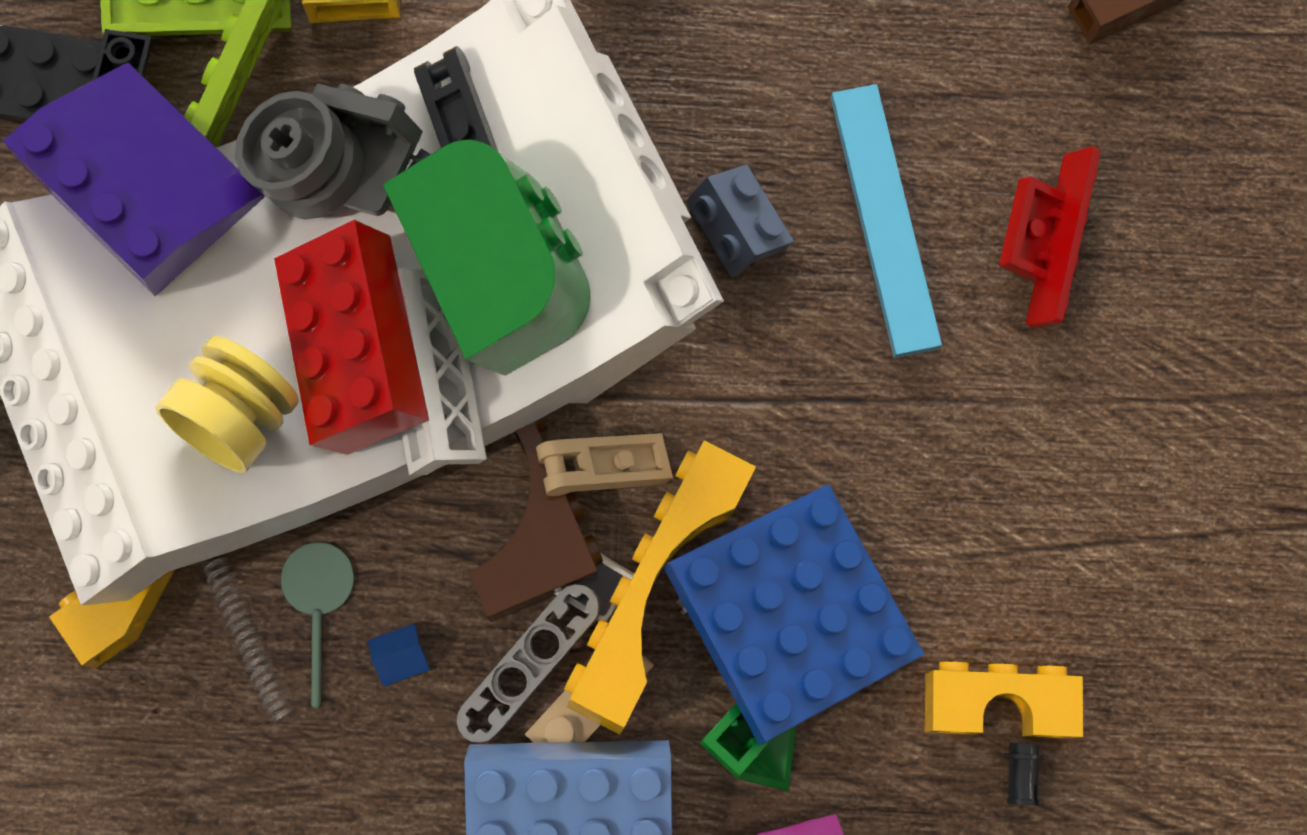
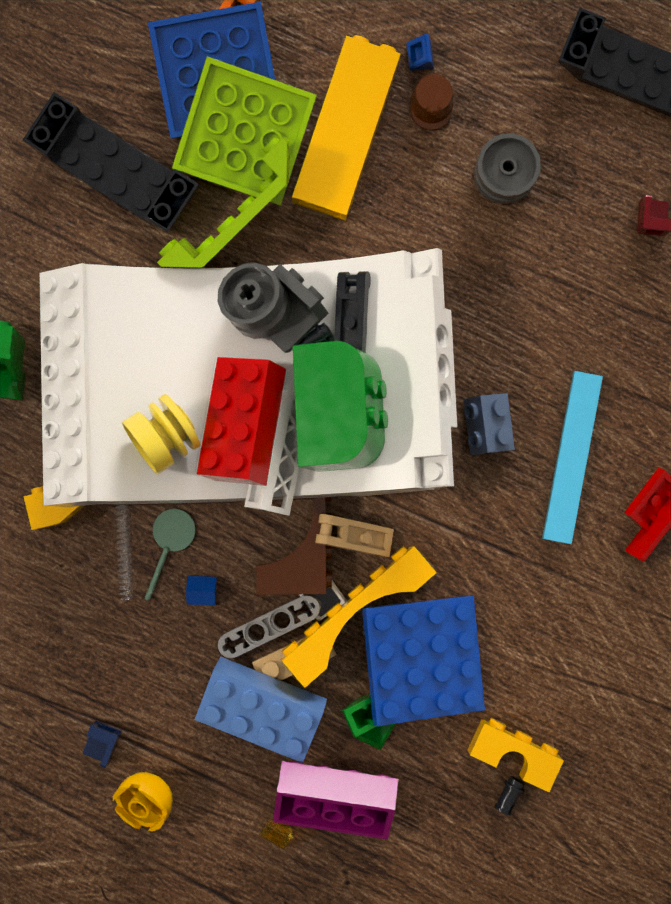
camera: 30 degrees right, 10 degrees up
(134, 174) = (159, 274): dark purple slope -> none

